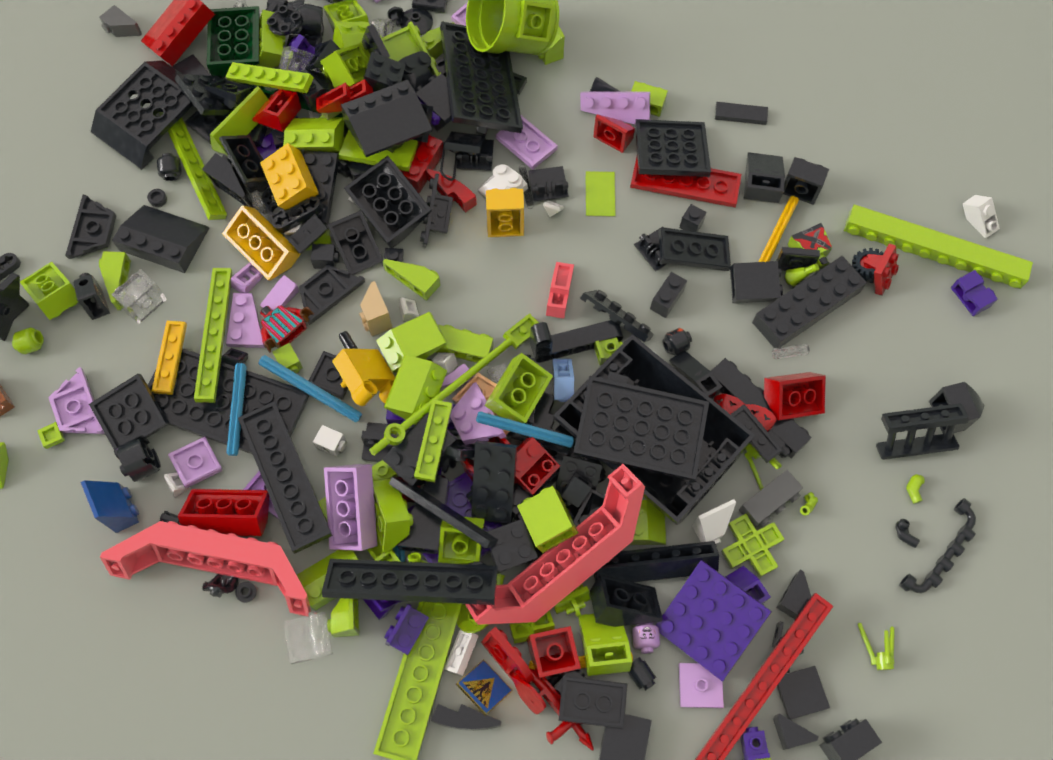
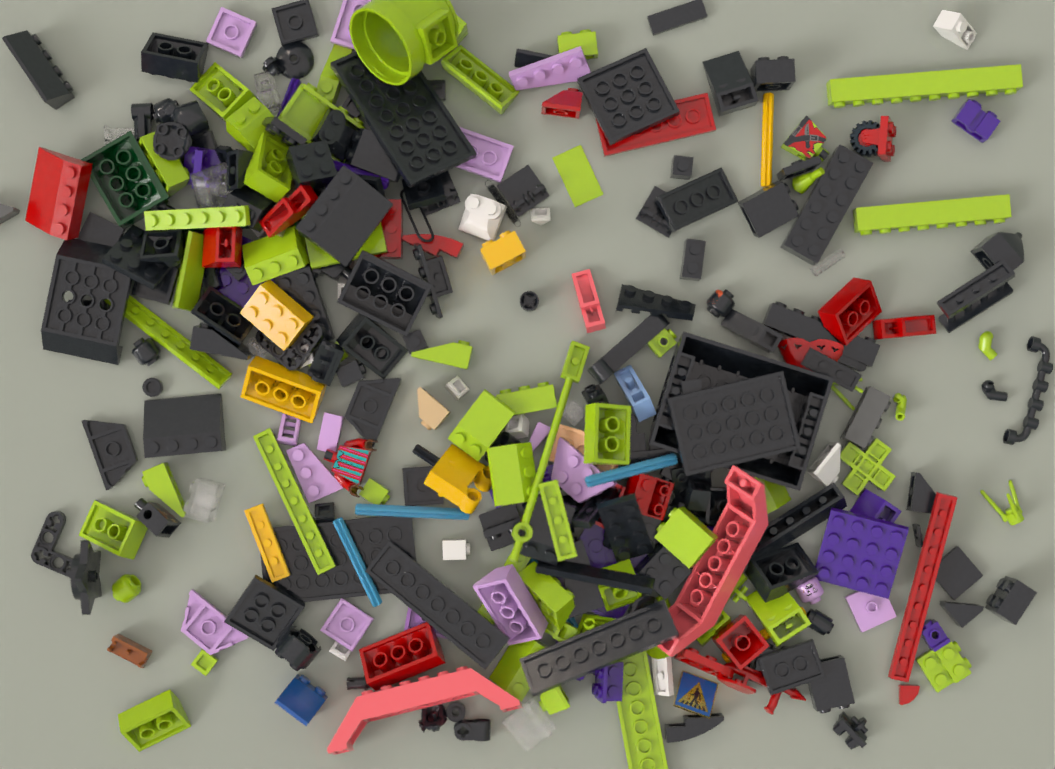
camera: 25 degrees left, 20 degrees up
(254, 617) = (475, 730): none -> black piece
(508, 266) = (529, 301): none -> black wheel
(554, 90) = (479, 79): none -> lime slope
(840, 435) = (904, 327): none -> red slope
(905, 350) = (931, 213): none -> lime brick

